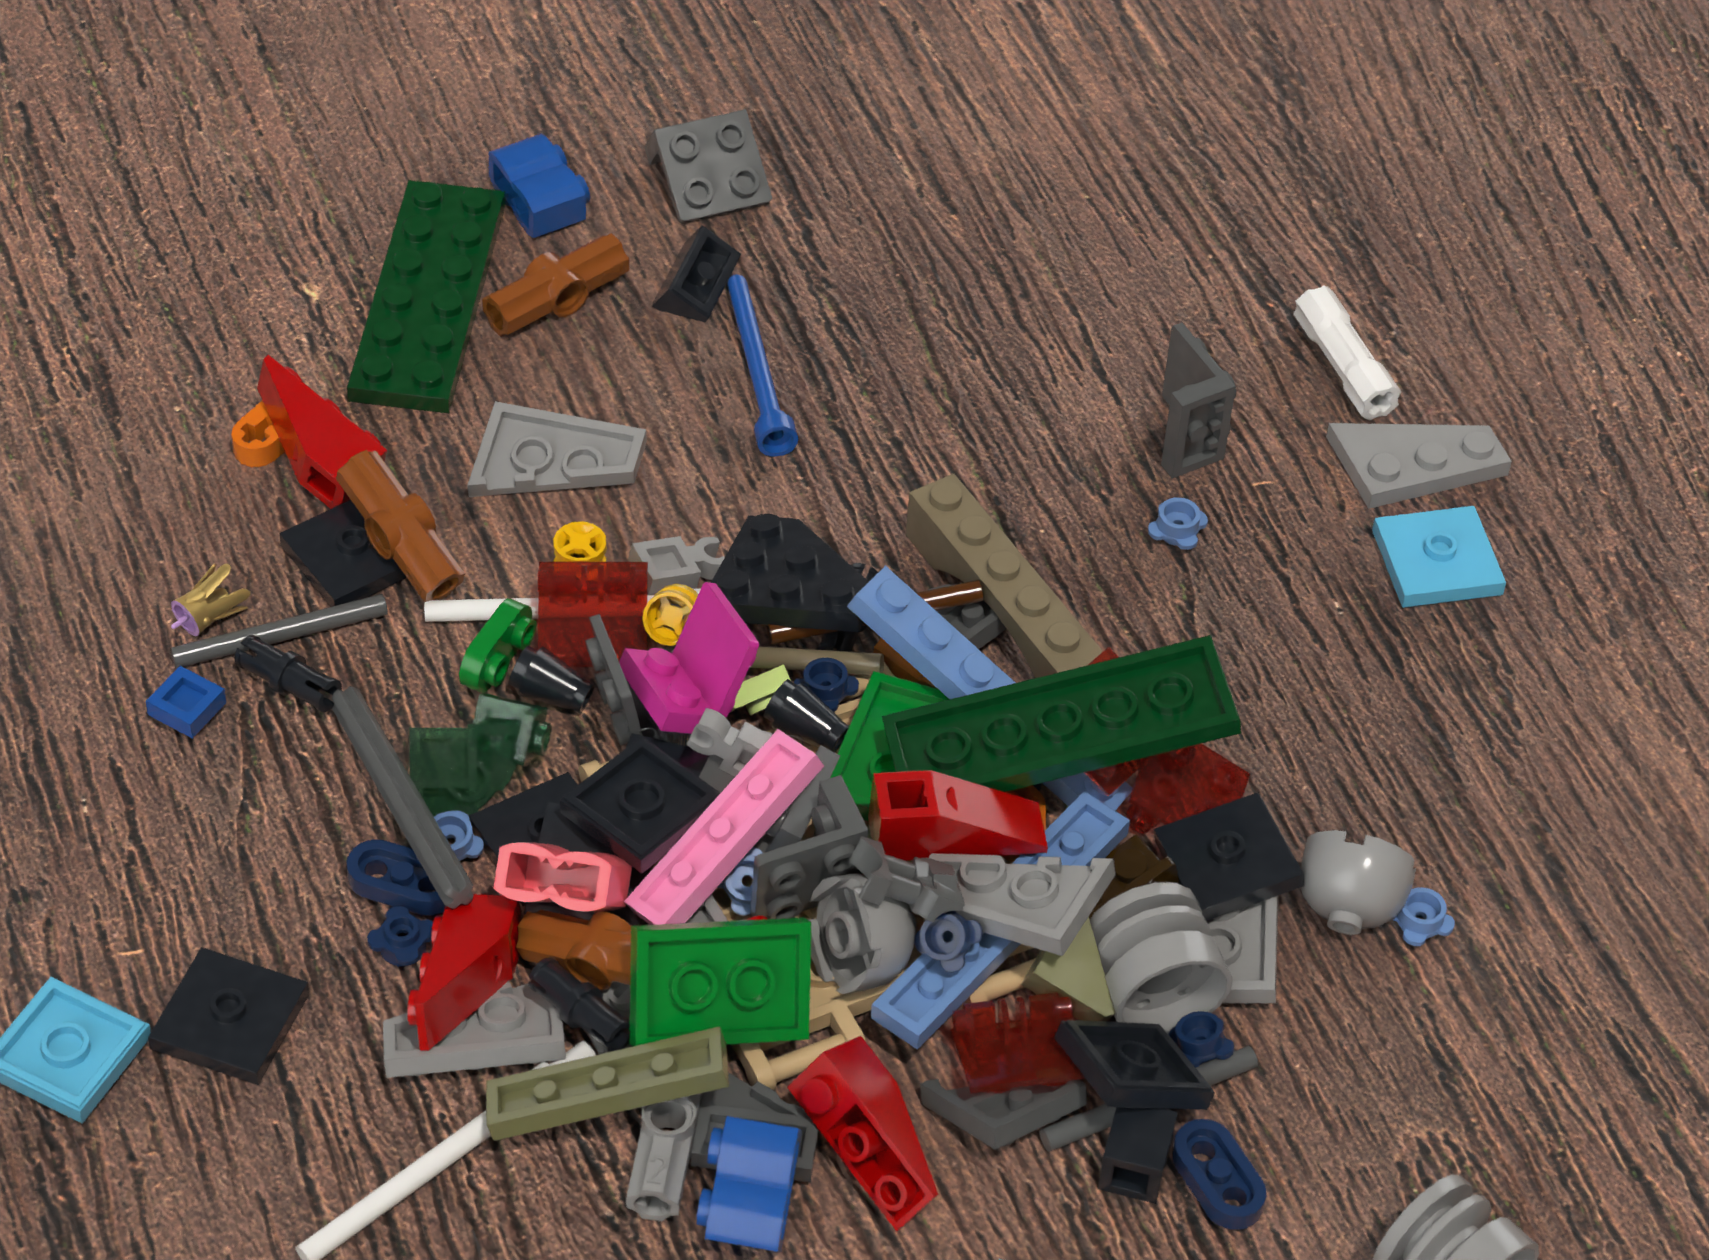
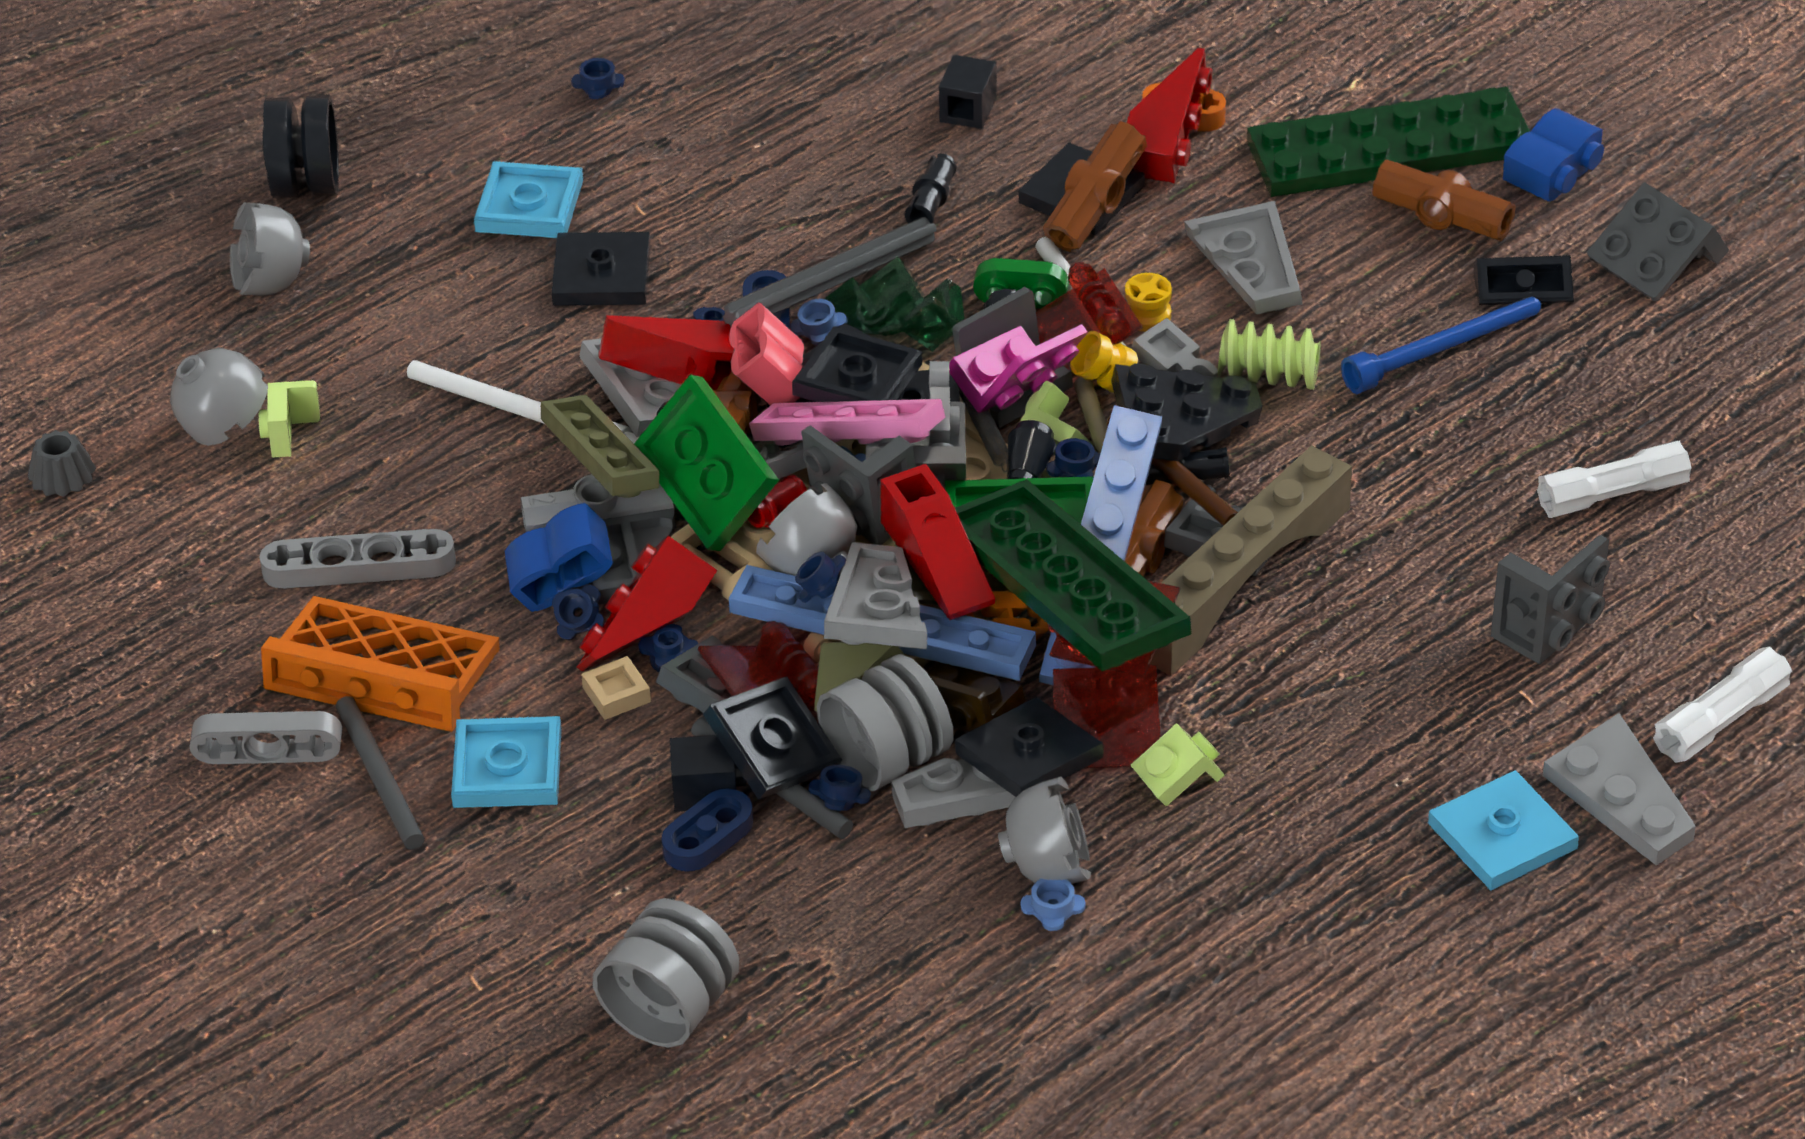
camera: 75 degrees right, 5 degrees down
(140, 585) = (967, 91): none -> black brick
(186, 701) = (872, 151): blue plate -> none
(206, 603) = (962, 128): pearl gold piece -> none
(280, 630) = (980, 180): dark grey bar -> none
(723, 487) = (1269, 354): none -> yellowish green piece
(842, 1195) = (565, 606): none -> dark blue plate
(924, 884) = (843, 539): dark grey piece -> none
(935, 1135) = (665, 645): none -> dark blue plate
(966, 1196) = (616, 687): none -> tan plate
(1021, 335) = (1582, 487): none -> white axle
(1178, 523) = (1424, 644): medium blue plate -> none
(1274, 756) = (1176, 763): none -> yellowish green bracket

